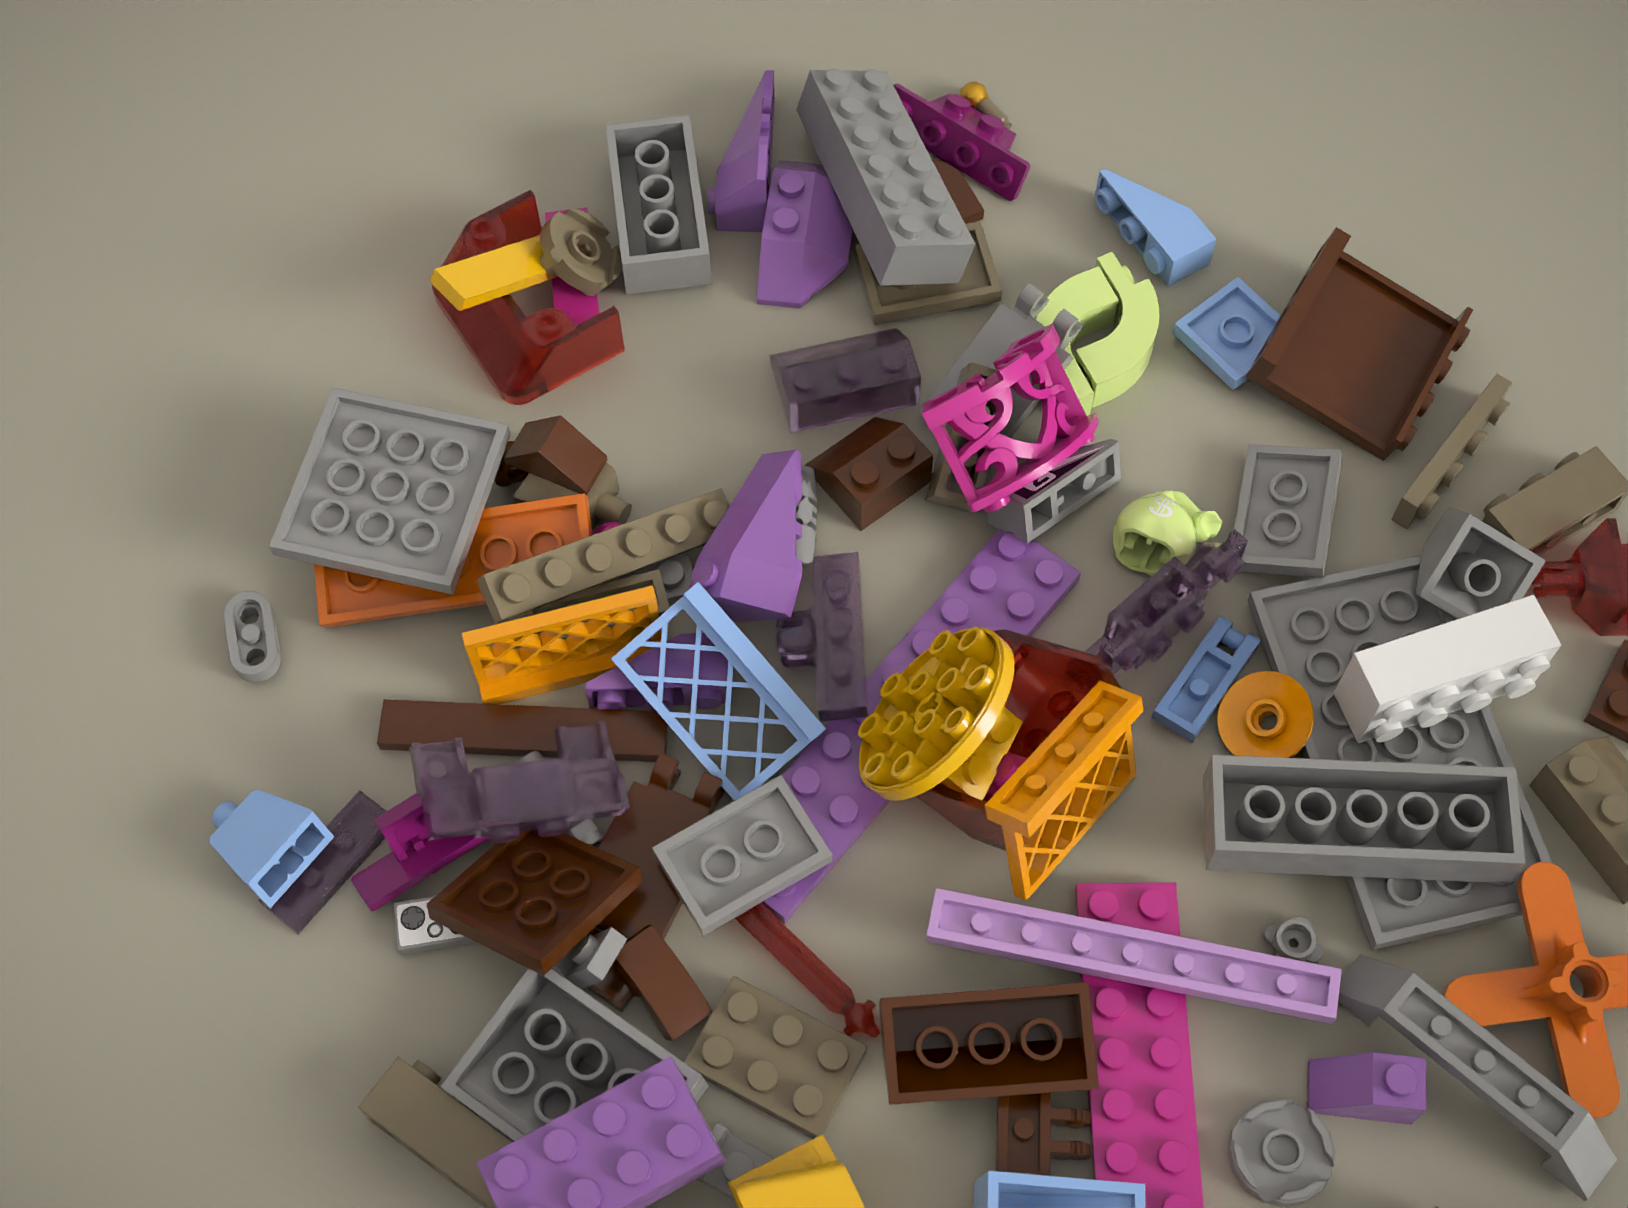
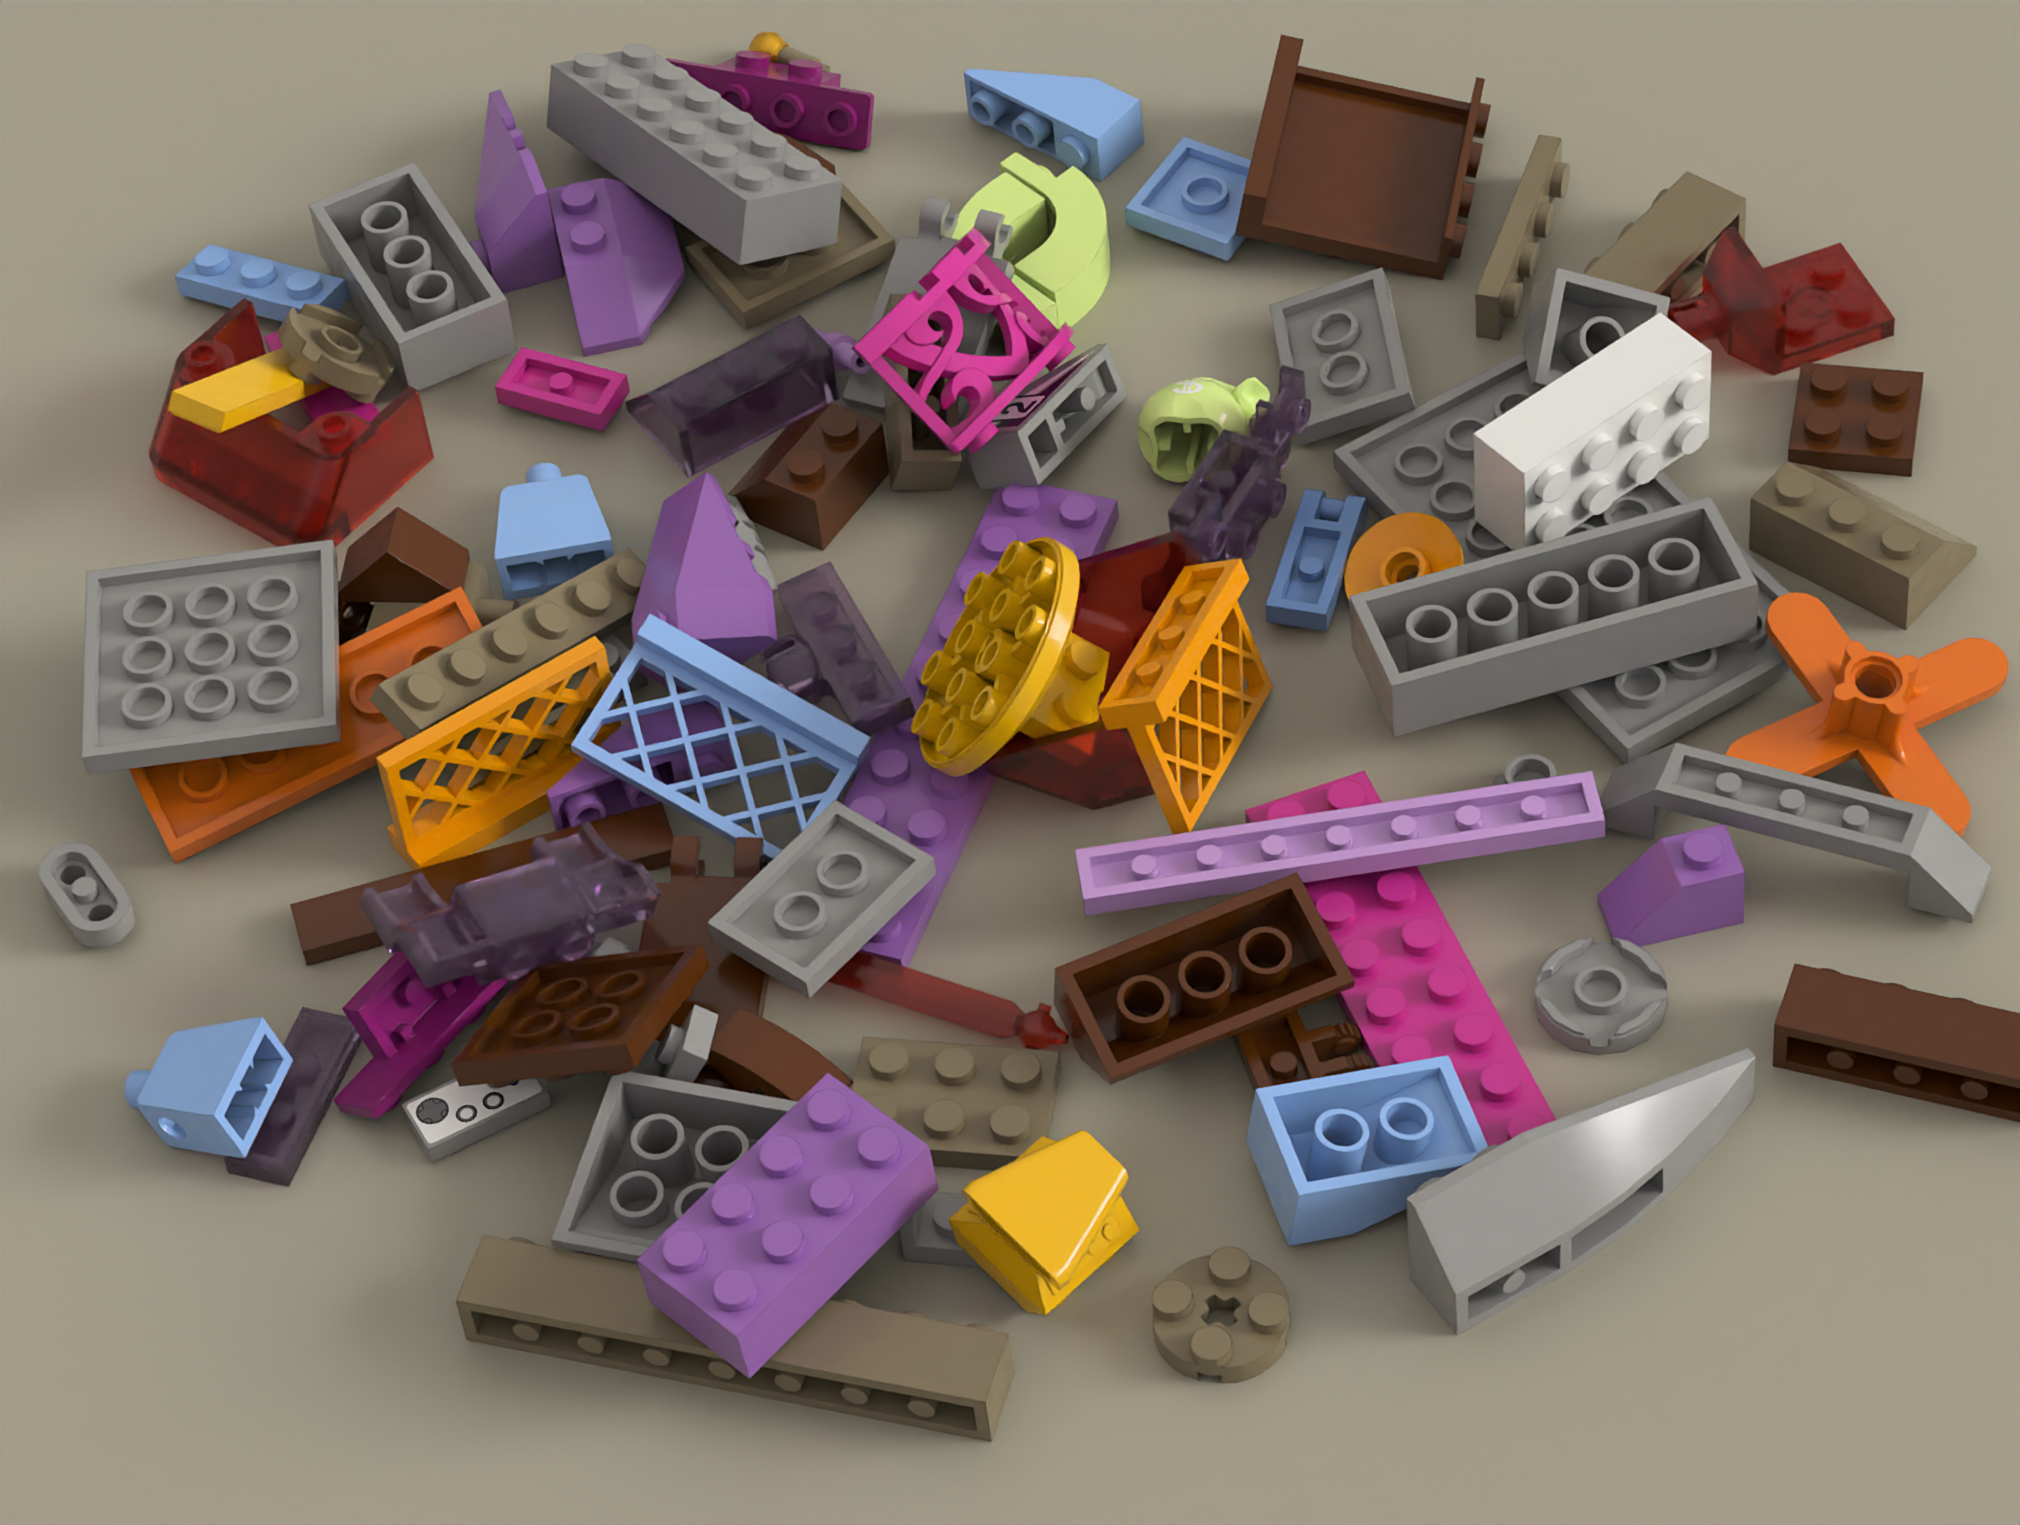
camera: 15 degrees left, 15 degrees down
(558, 170) = (273, 287): none -> light blue plate
(673, 452) = (548, 532): none -> light blue torso
(729, 331) = (562, 389): none -> dark pink plate
(930, 371) = (843, 355): none -> lavender bar

